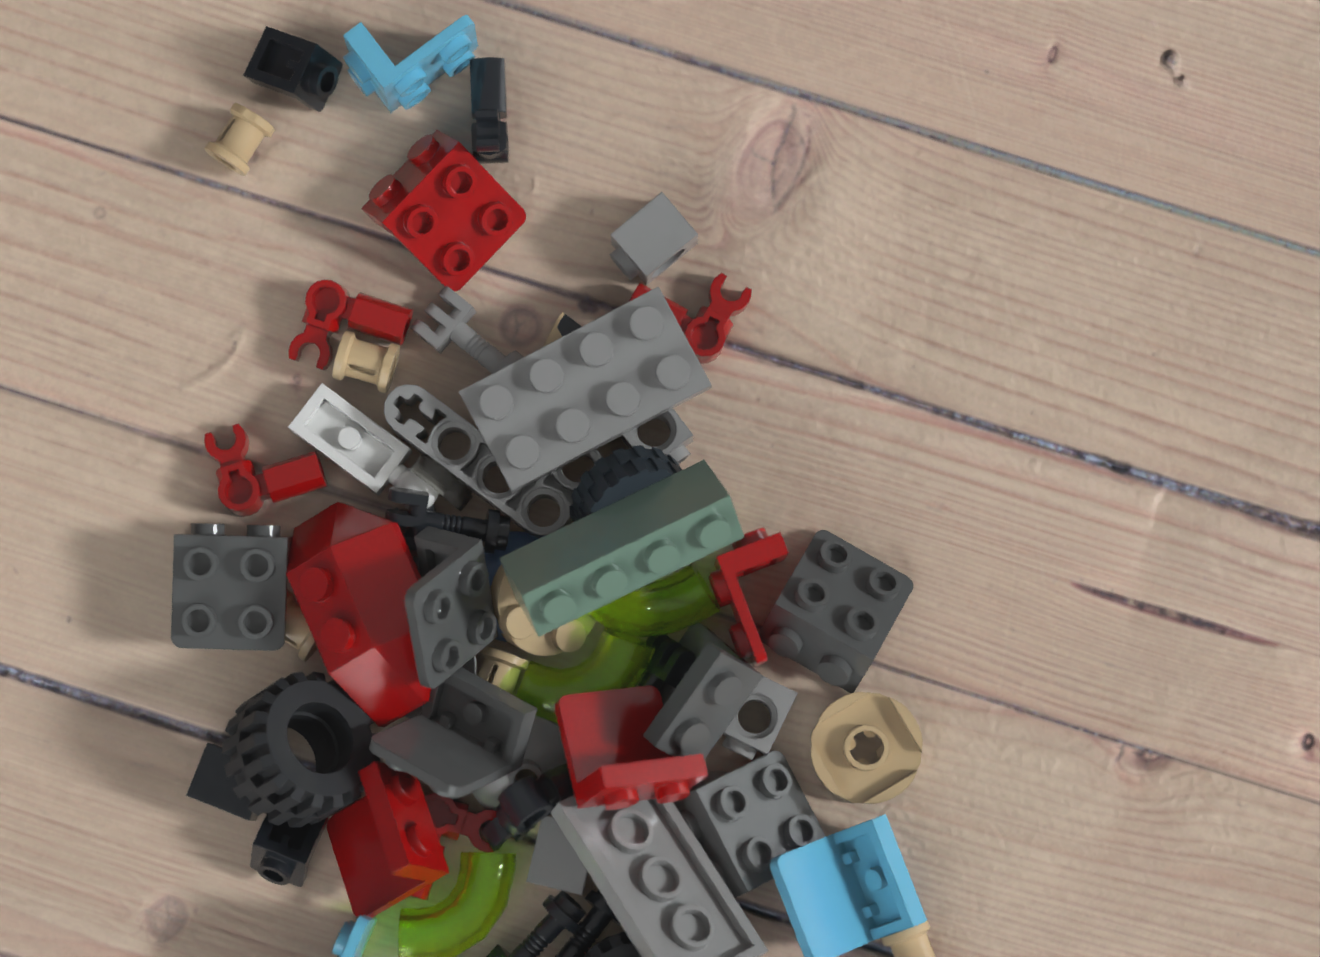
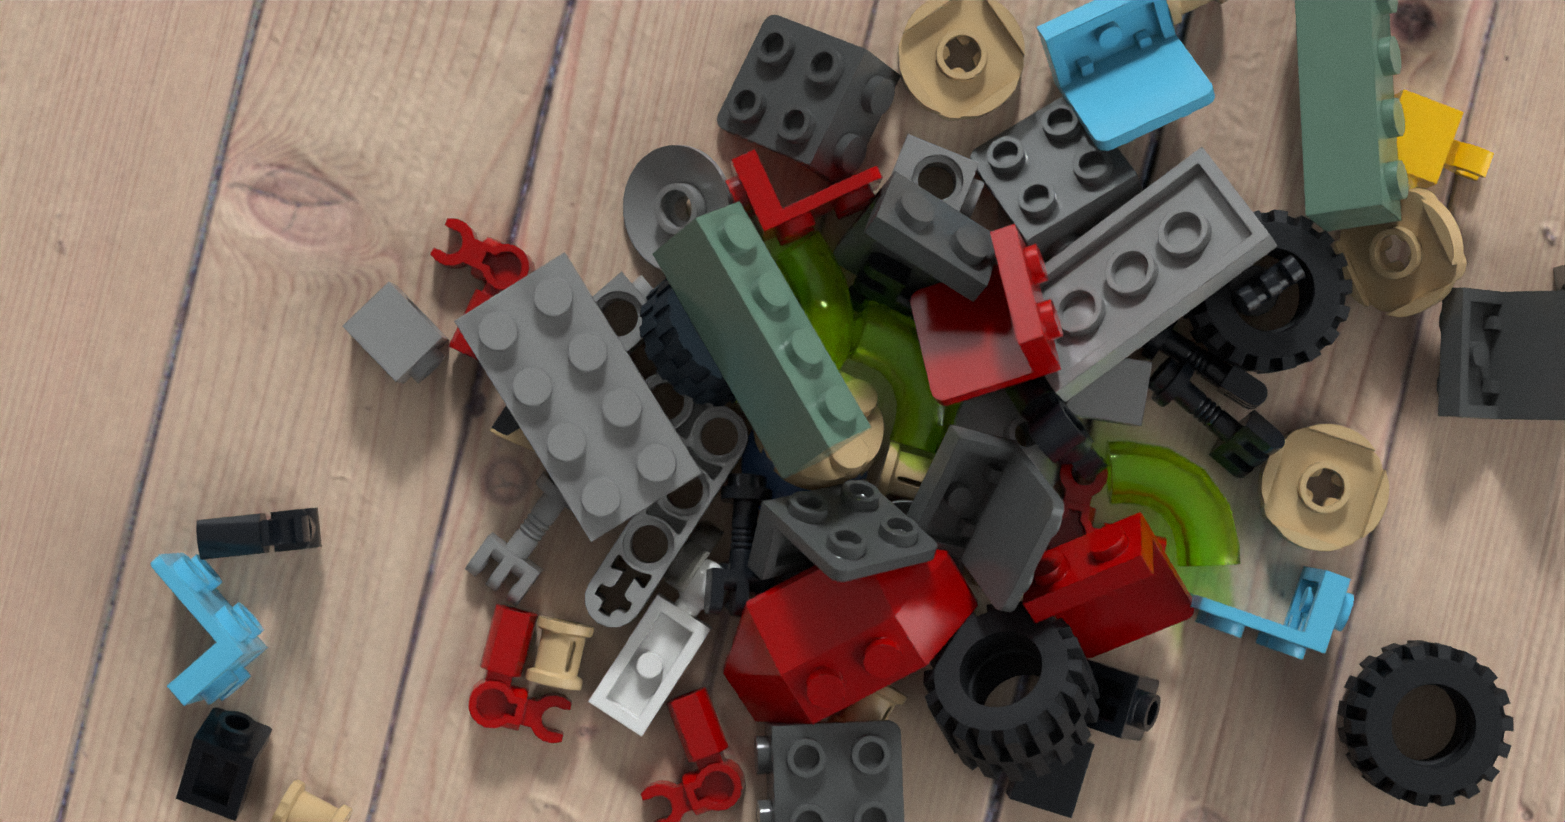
camera: 90 degrees left, 5 degrees up
(445, 209) = (377, 575): red bracket -> none
(764, 477) = (659, 194): none -> light grey dish

